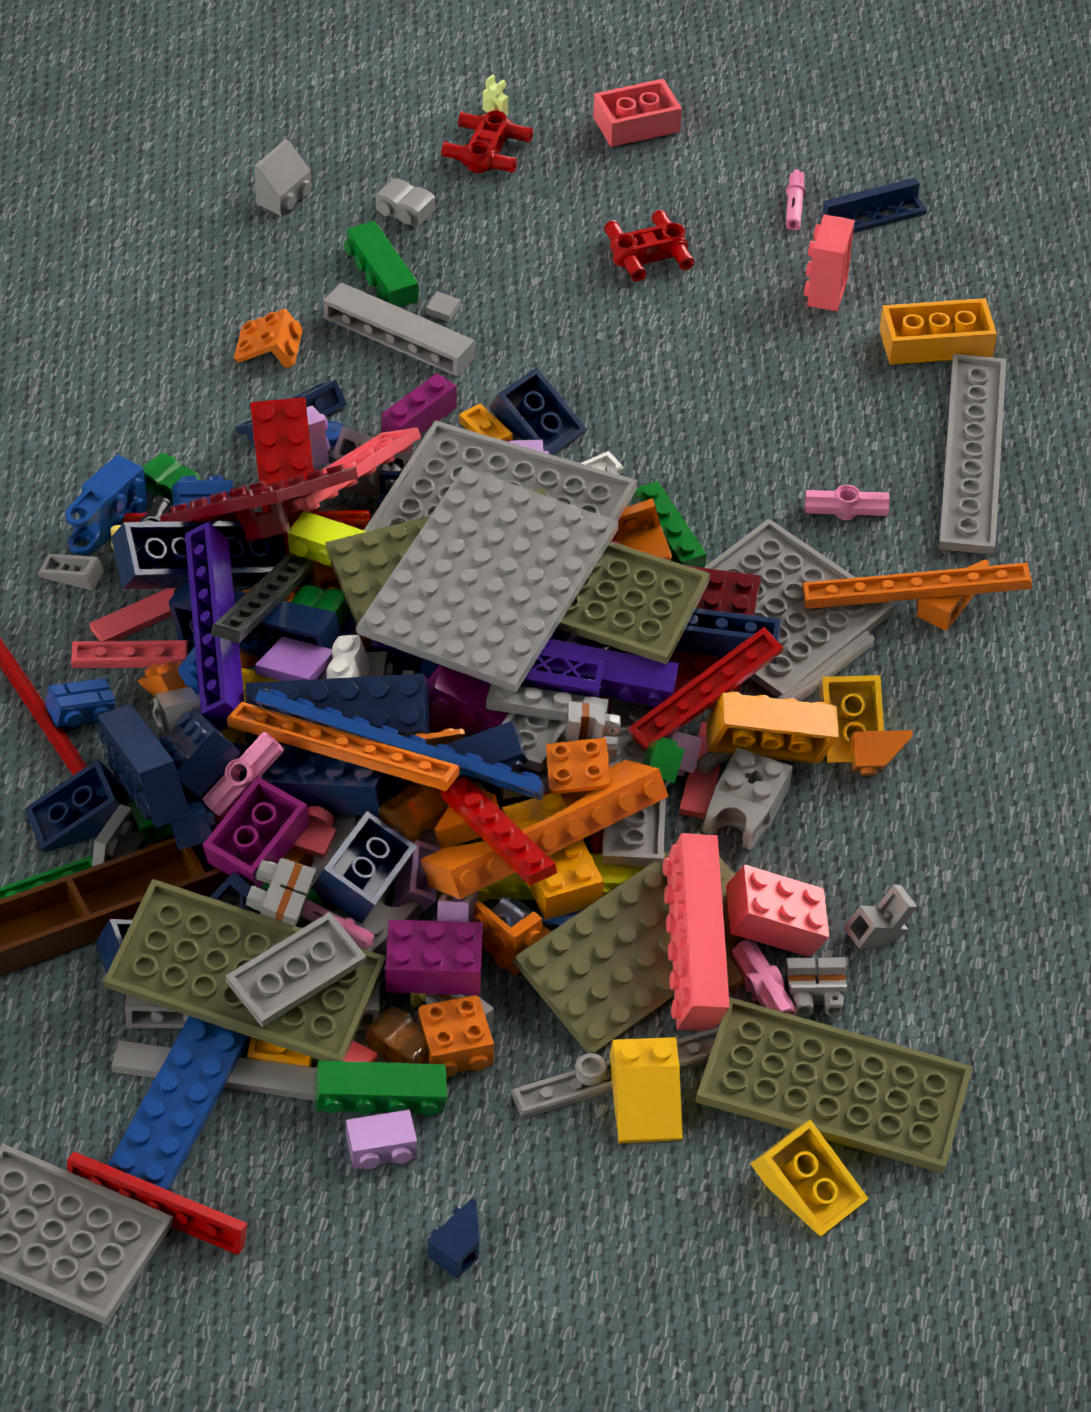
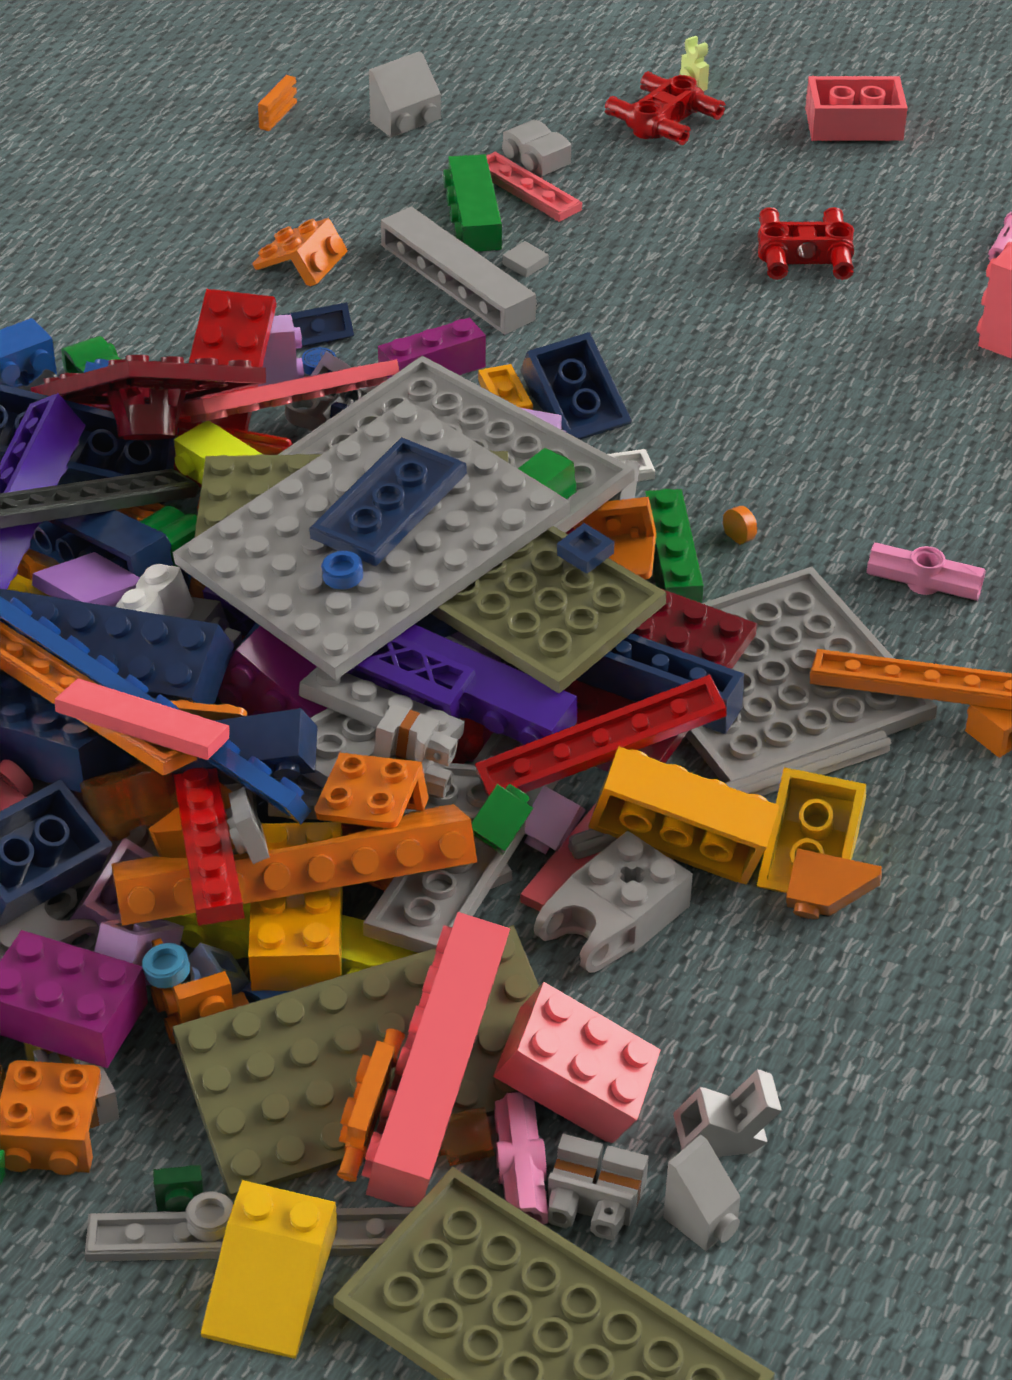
camera: 20 degrees right, 5 degrees down
(178, 205) = (277, 103): none -> orange tile
(414, 755) = (142, 719): none -> coral tile
(417, 240) = (532, 188): none -> coral tile
(489, 612) = (342, 570): none -> blue tile
(495, 552) = (388, 501): none -> dark blue tile
(496, 917) = (166, 965): none -> dark azure tile
(517, 810) = (246, 827): none -> light grey plate
(561, 1058) = (177, 1187): none -> dark green plate
(586, 497) = (552, 471): none -> green brick
(645, 554) = (585, 548): none -> dark blue plate
(666, 972) = (364, 1108): none -> orange plate
(703, 497) = (740, 524): none -> orange tile
(887, 974) = (701, 1195): none -> light grey slope

